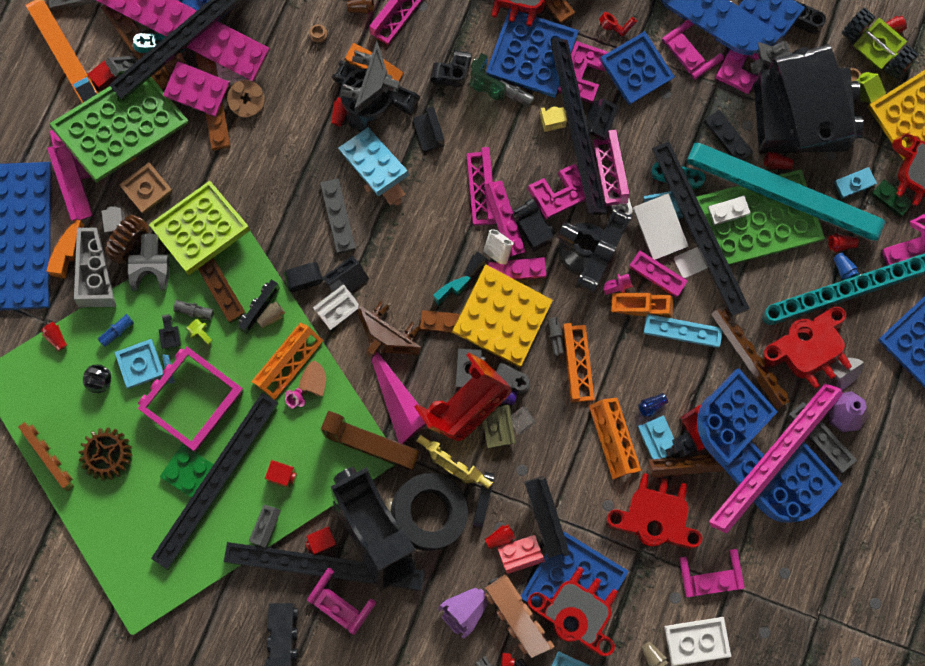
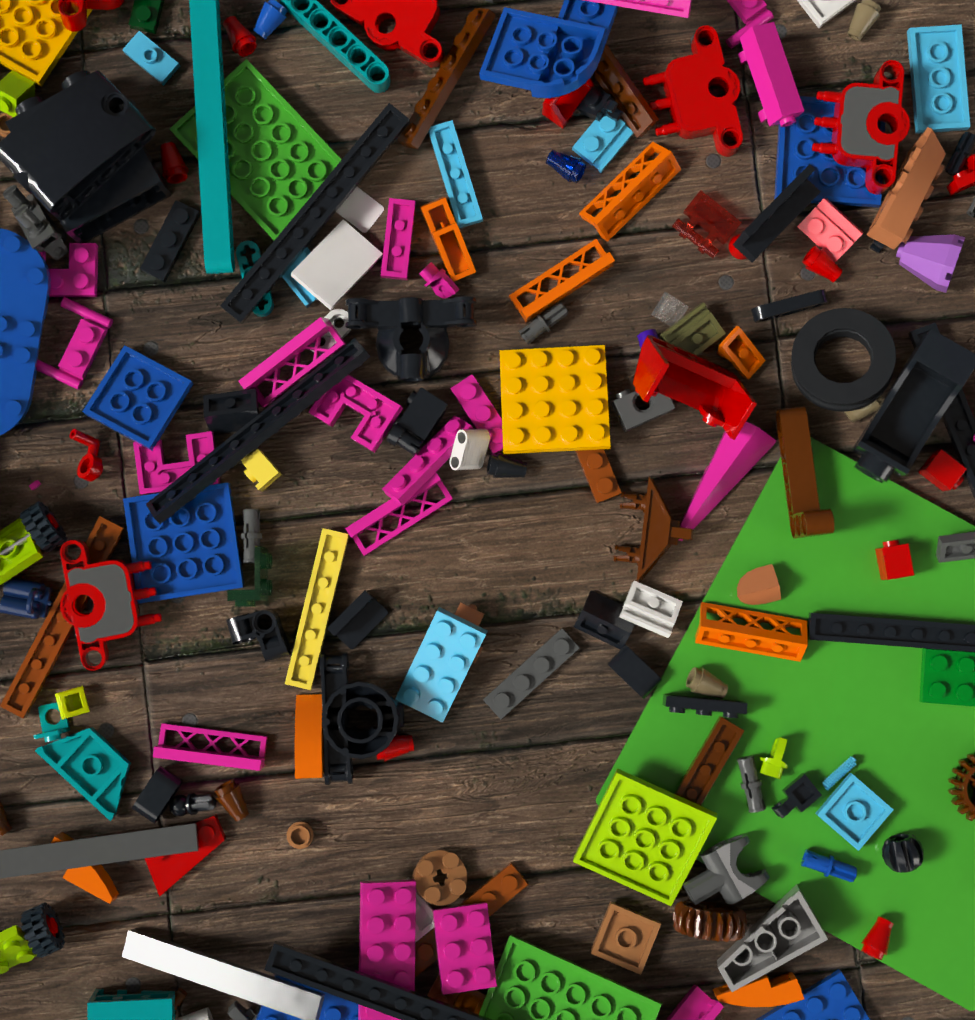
camera: 115 degrees left, 10 degrees up
(112, 218) = (690, 954): light grey brick -> none
(168, 372) = (919, 686): dark pink window -> none
(290, 400) = (794, 596): dark pink plate -> none
(375, 80) = (338, 715): dark grey connector -> none
(449, 109) = (317, 609): none -> light yellow plate
(455, 286) = (546, 474): teal slope -> none
(459, 469) = (775, 352): light yellow plate -> none
(469, 449) = (741, 353): none -> orange slope
(513, 376) = (625, 353): dark grey piece -> none
(567, 481) = (712, 218): none -> clear red plate
(644, 566) = (771, 75): none -> dark pink brick
(728, 210) = (272, 190): white plate -> none

